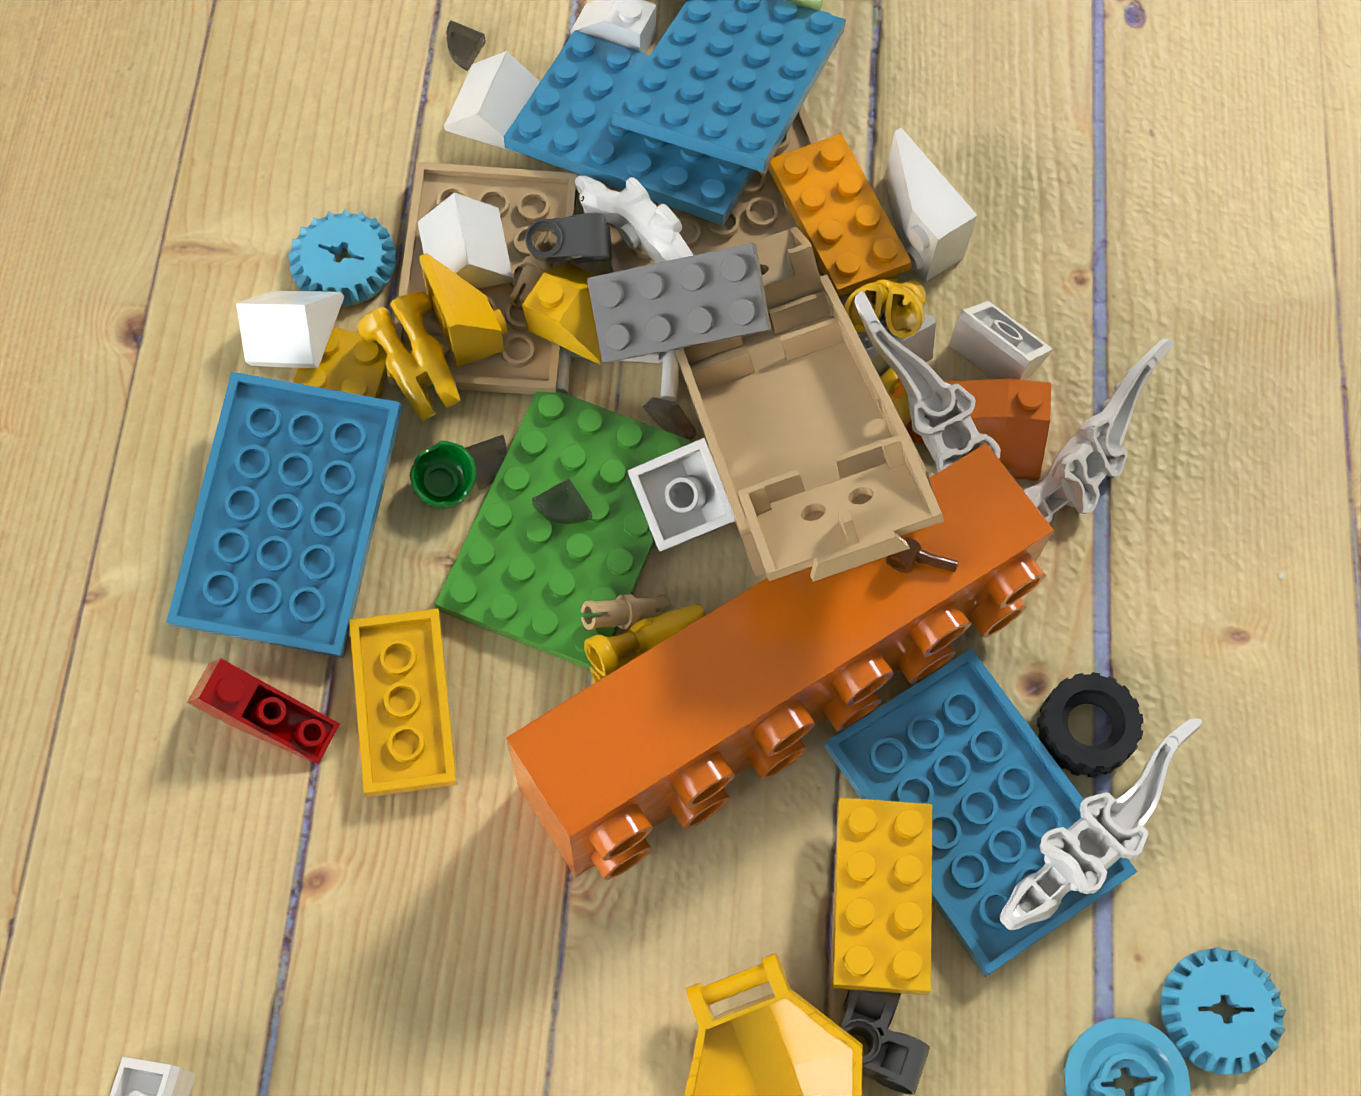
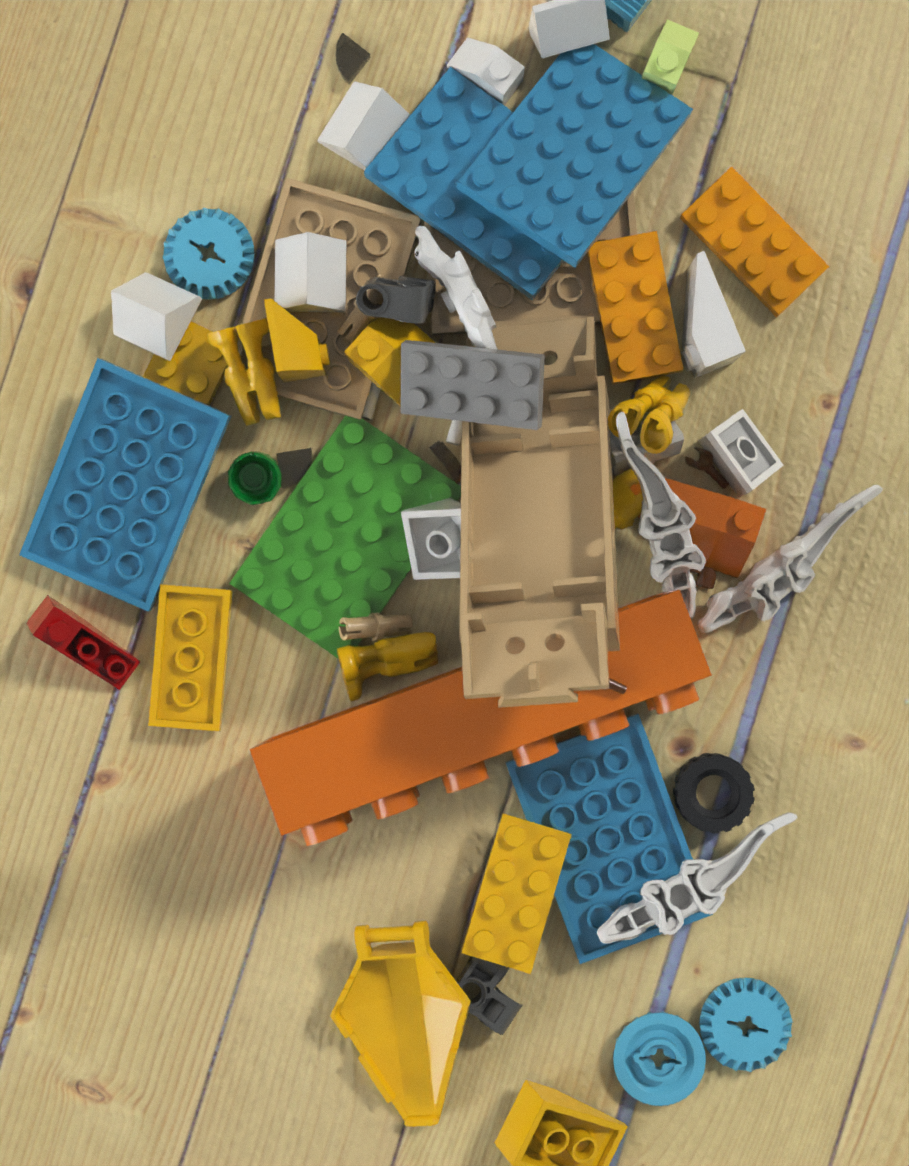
camera: 15 degrees right, 20 degrees up
(562, 504) = (344, 525): clear smoke tile -> none
(952, 134) = (754, 241): none -> light orange plate
(963, 359) = (705, 464): none -> reddish brown hand

